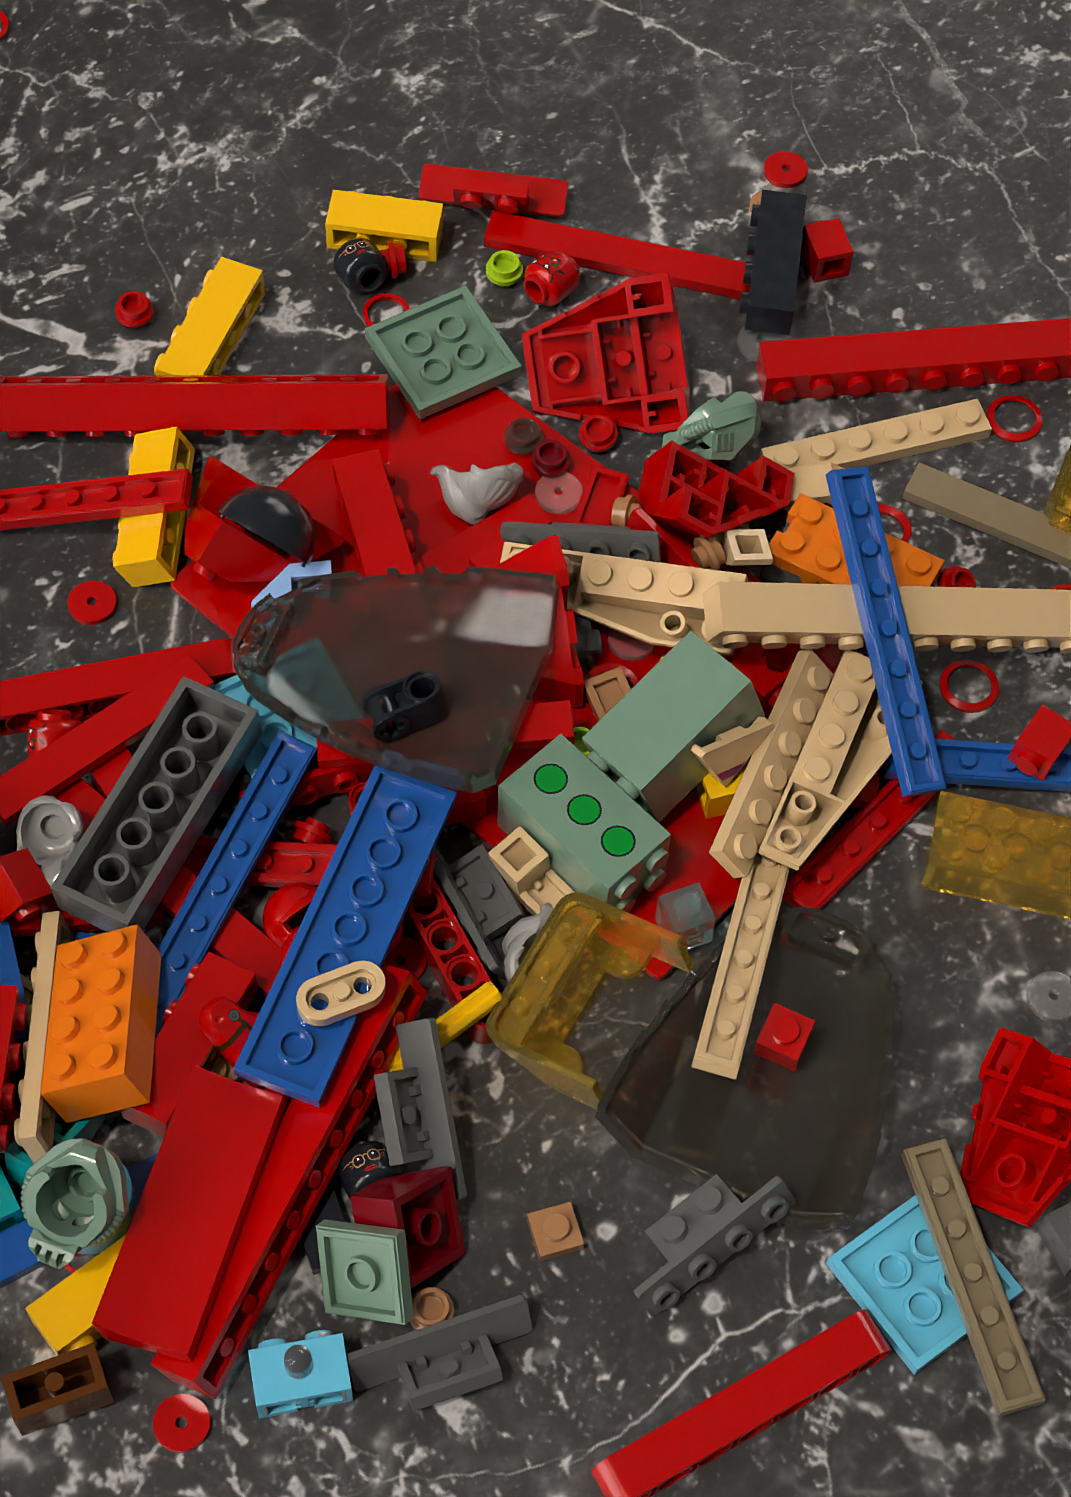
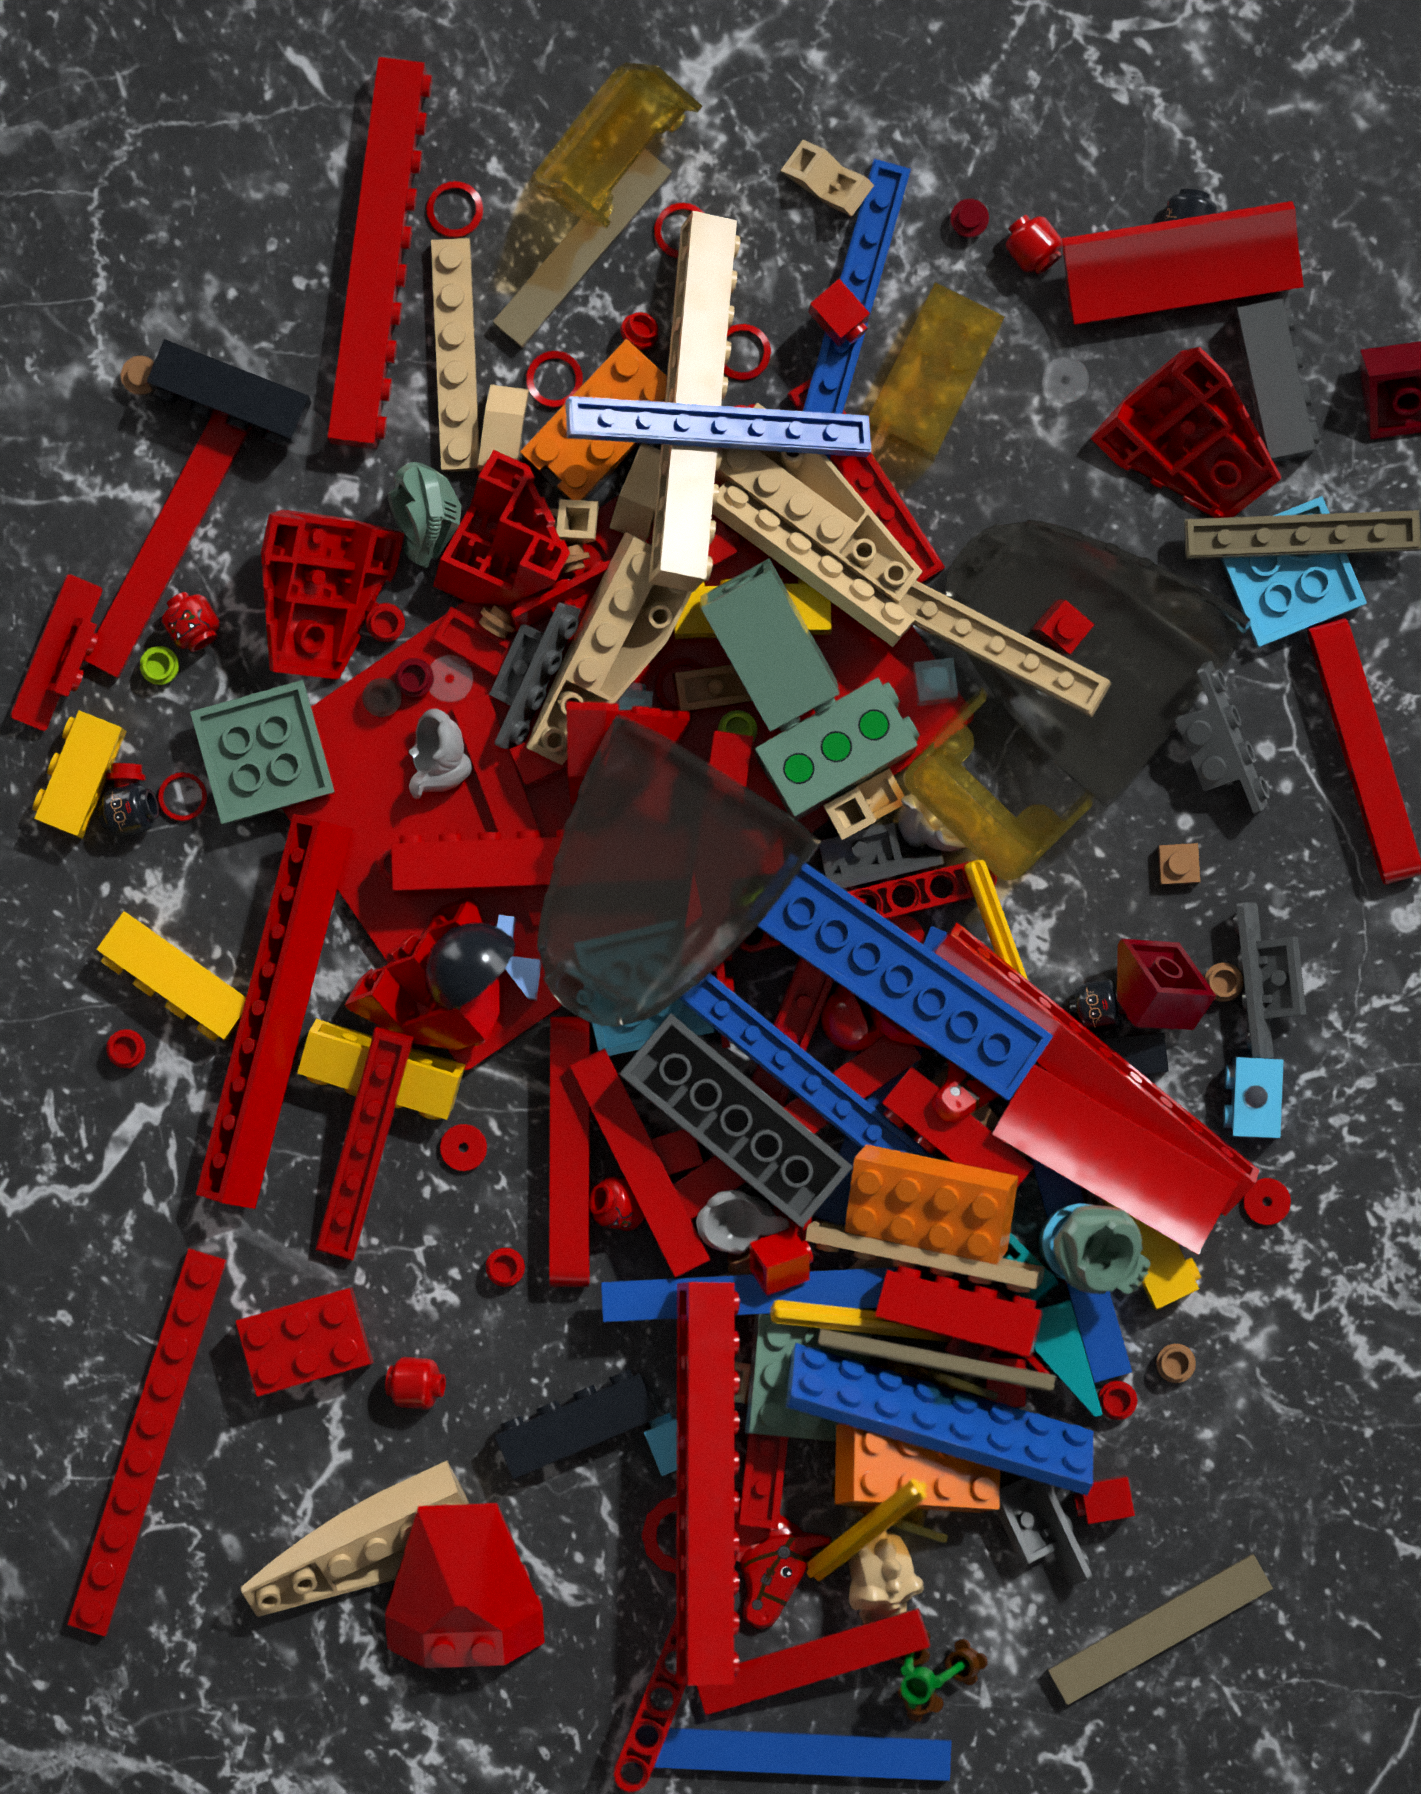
camera: 70 degrees left, 25 degrees up
(57, 1389) = (1227, 1293): reddish brown brick -> none
(311, 832) = (766, 990): red plate -> none
(338, 991) = (969, 996): tan plate -> none
(364, 1271) = (1192, 1028): sand green tile -> none
(408, 704) = (696, 884): black piece -> none
(418, 1105) = (1060, 953): dark grey bracket -> none
(732, 749) = (801, 596): tan tile -> none
(793, 162) = (77, 339): red wheel -> none
(826, 250) = (214, 333): red brick -> none

